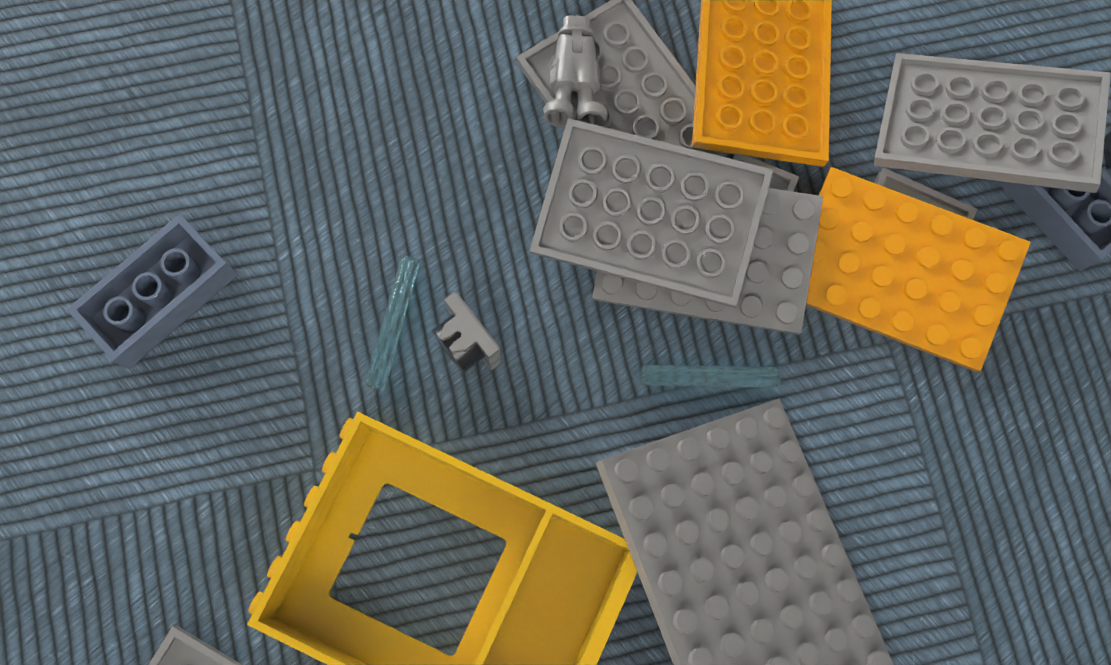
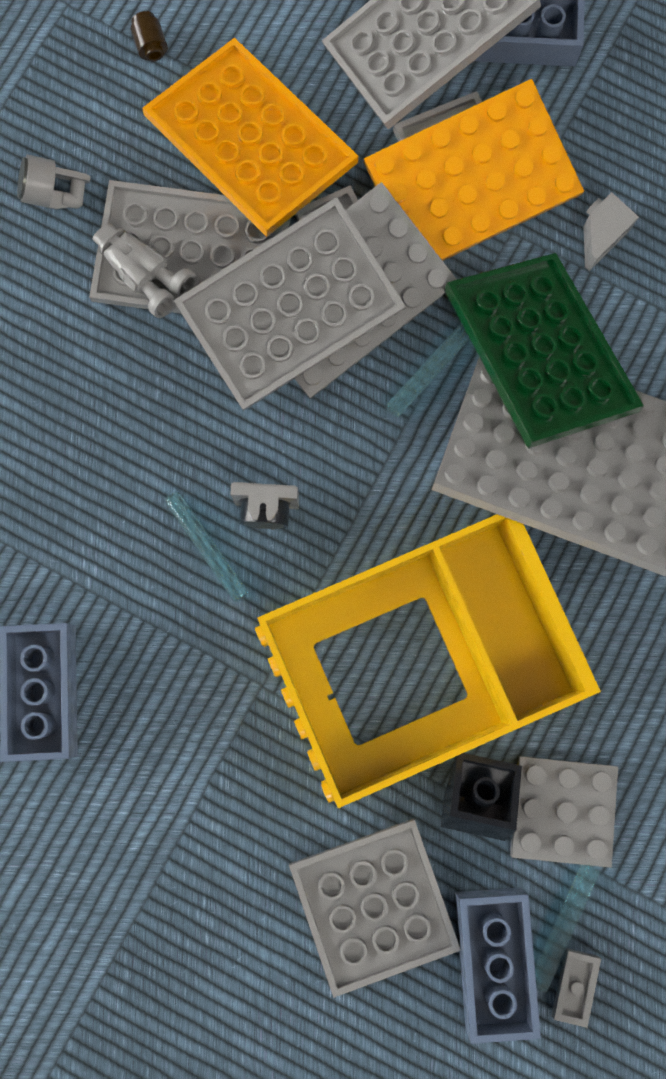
camera: 45 degrees left, 5 degrees up
(808, 456) = (542, 349): none -> dark green plate
(968, 417) = (605, 227): none -> light grey slope

